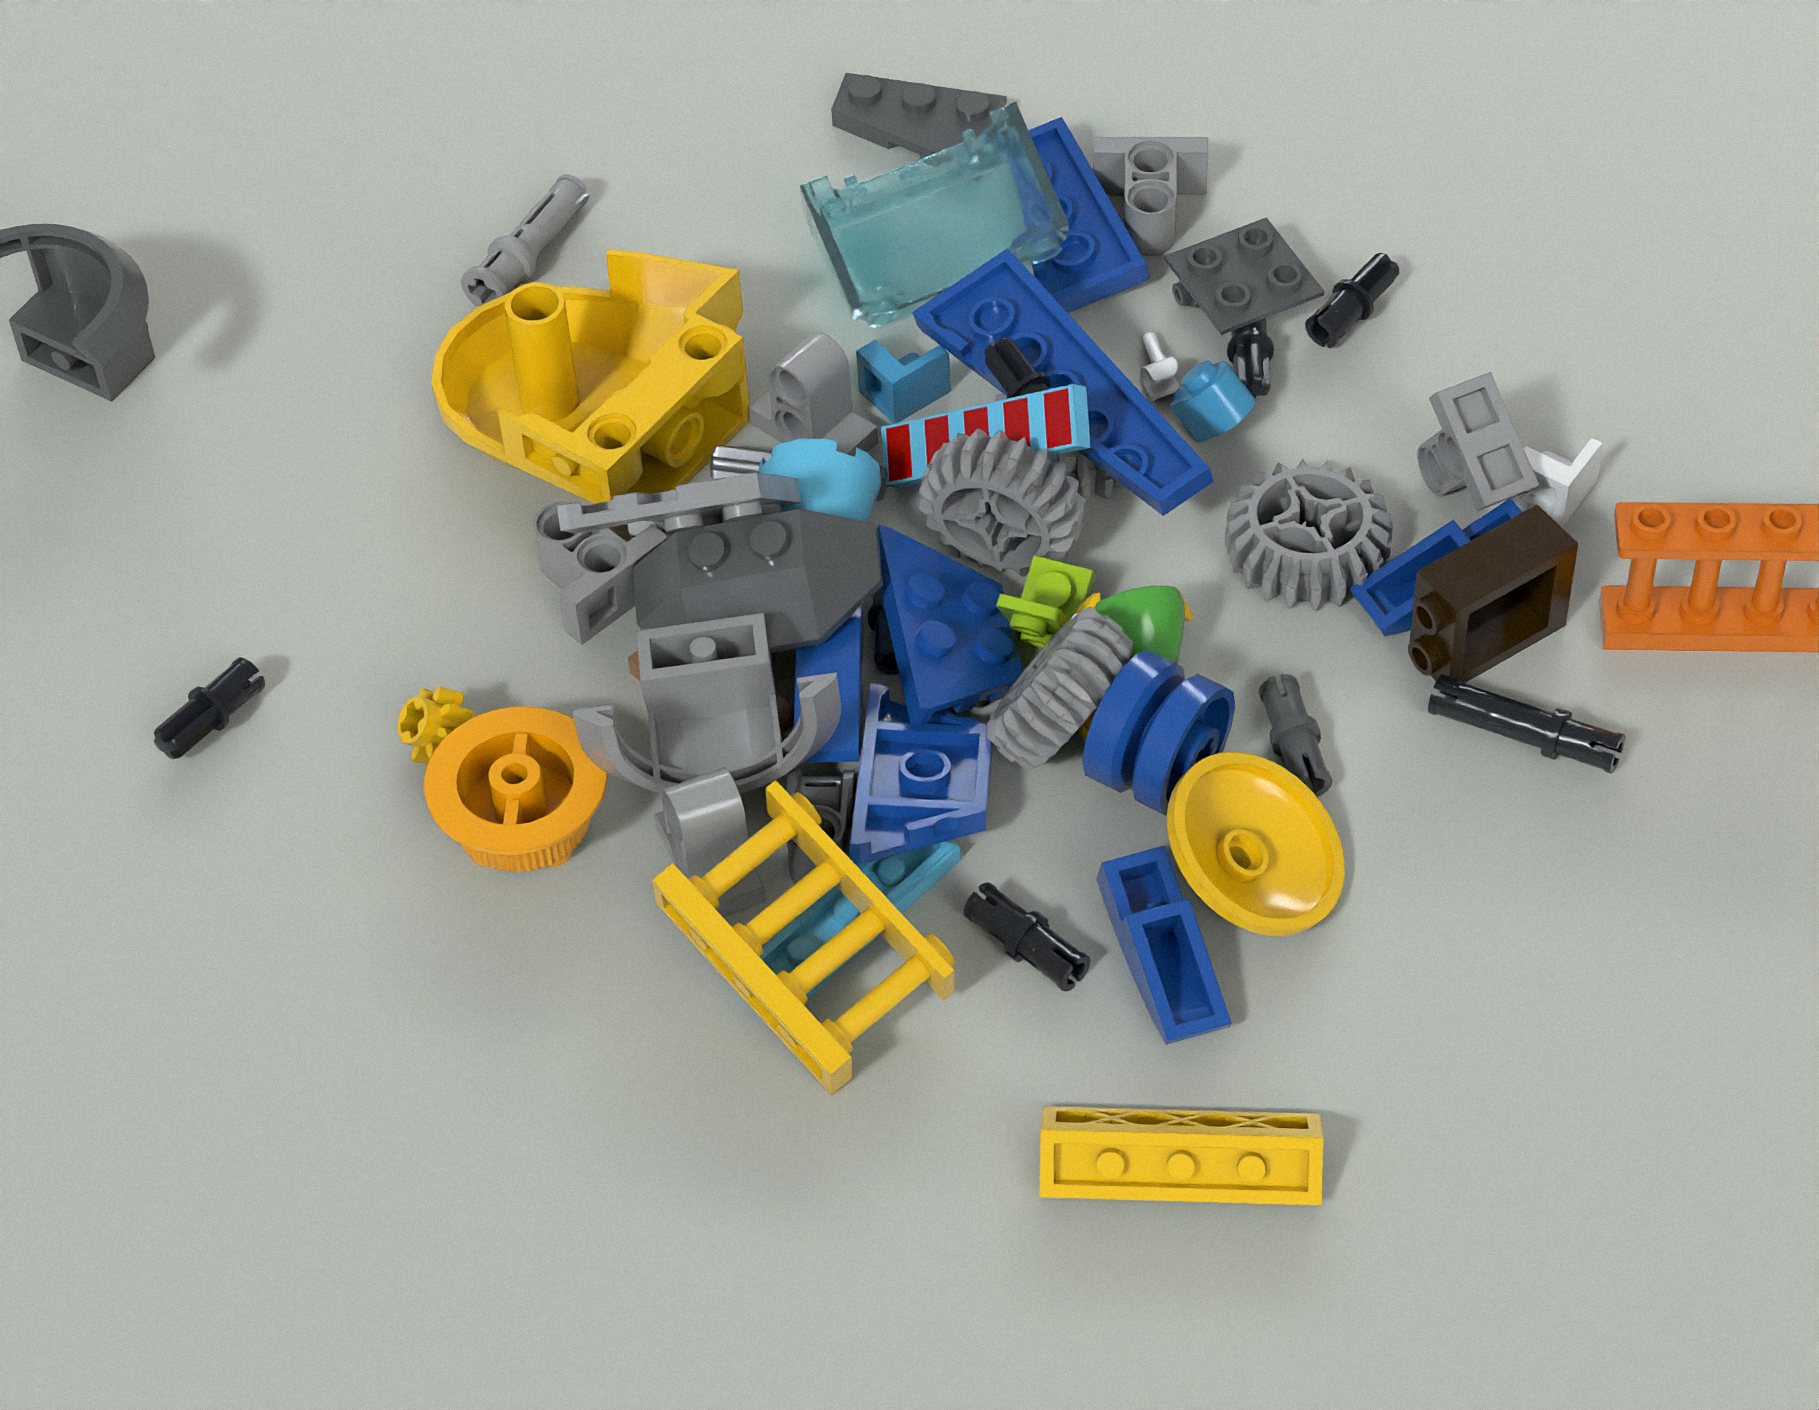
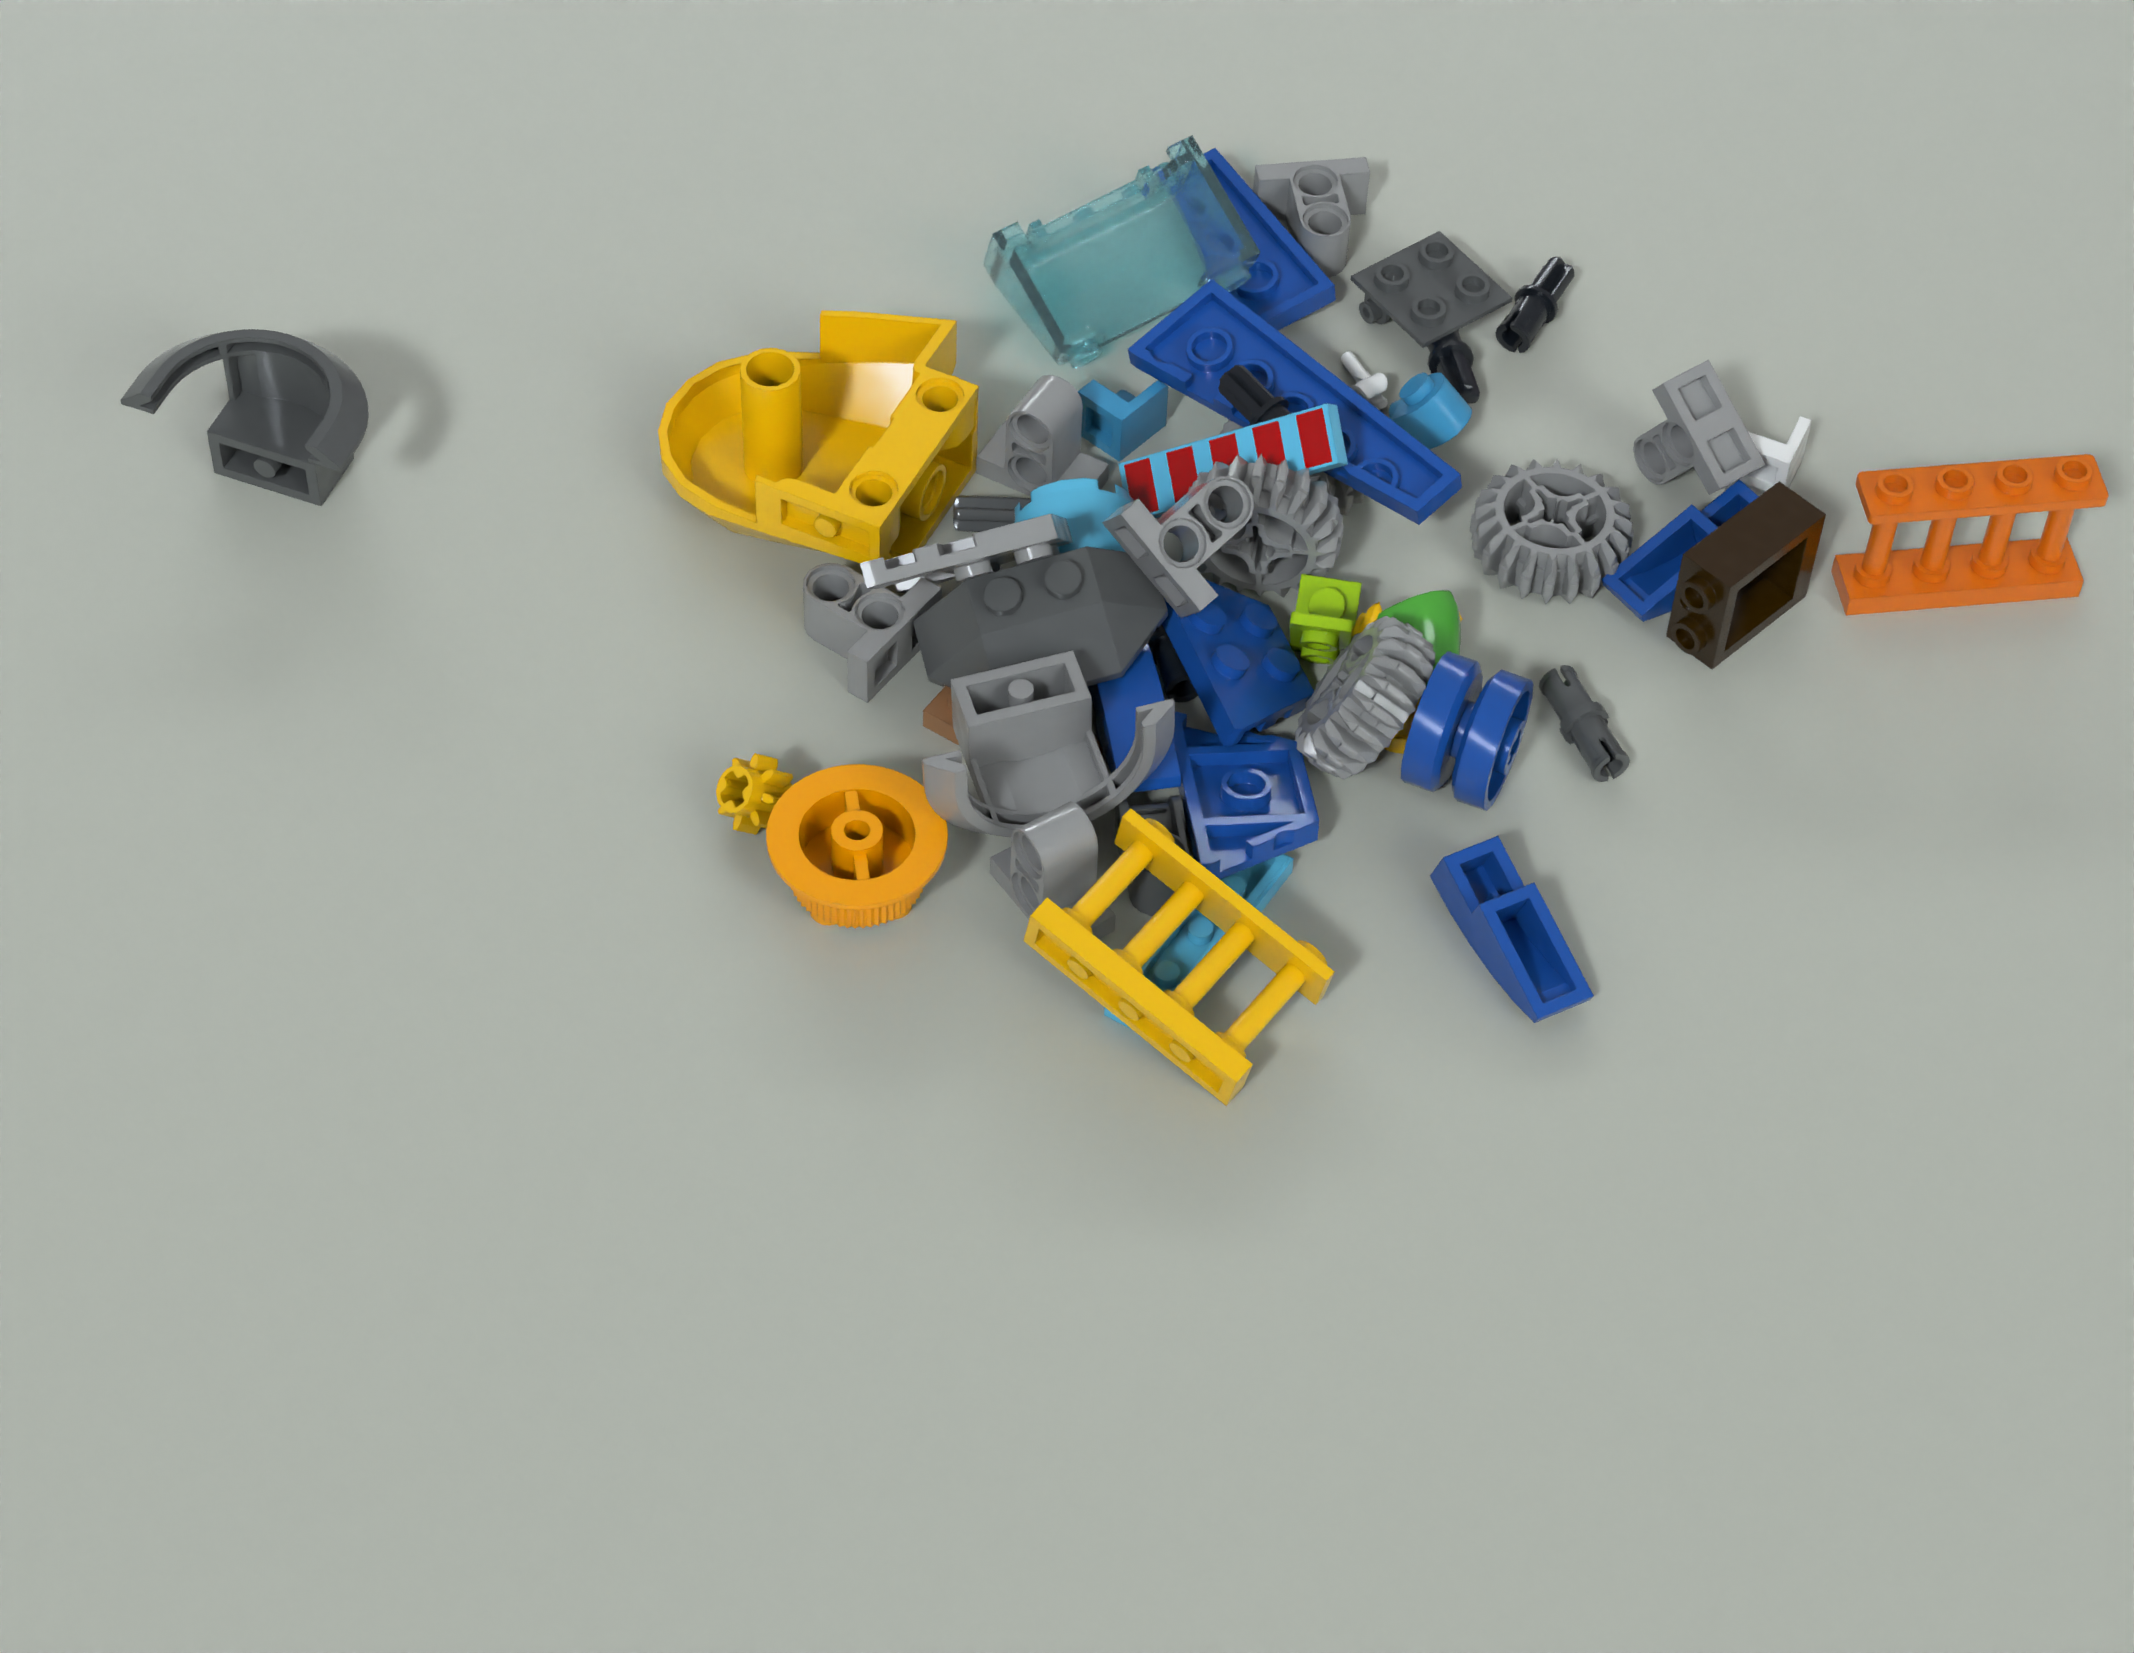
camera: 15 degrees left, 0 degrees up
(208, 708) = (515, 799): black axle -> none
(514, 256) = (701, 327): light grey pin -> none
(910, 113) = (1063, 157): dark grey wing -> none
(913, 498) = (1197, 530): none -> light grey tile
(1027, 936) = (1378, 936): black pin -> none
(1181, 1155) = (1577, 1123): yellow fence -> none
(1255, 844) = (1581, 826): yellow dish -> none
(1551, 731) = (1797, 690): black pin -> none

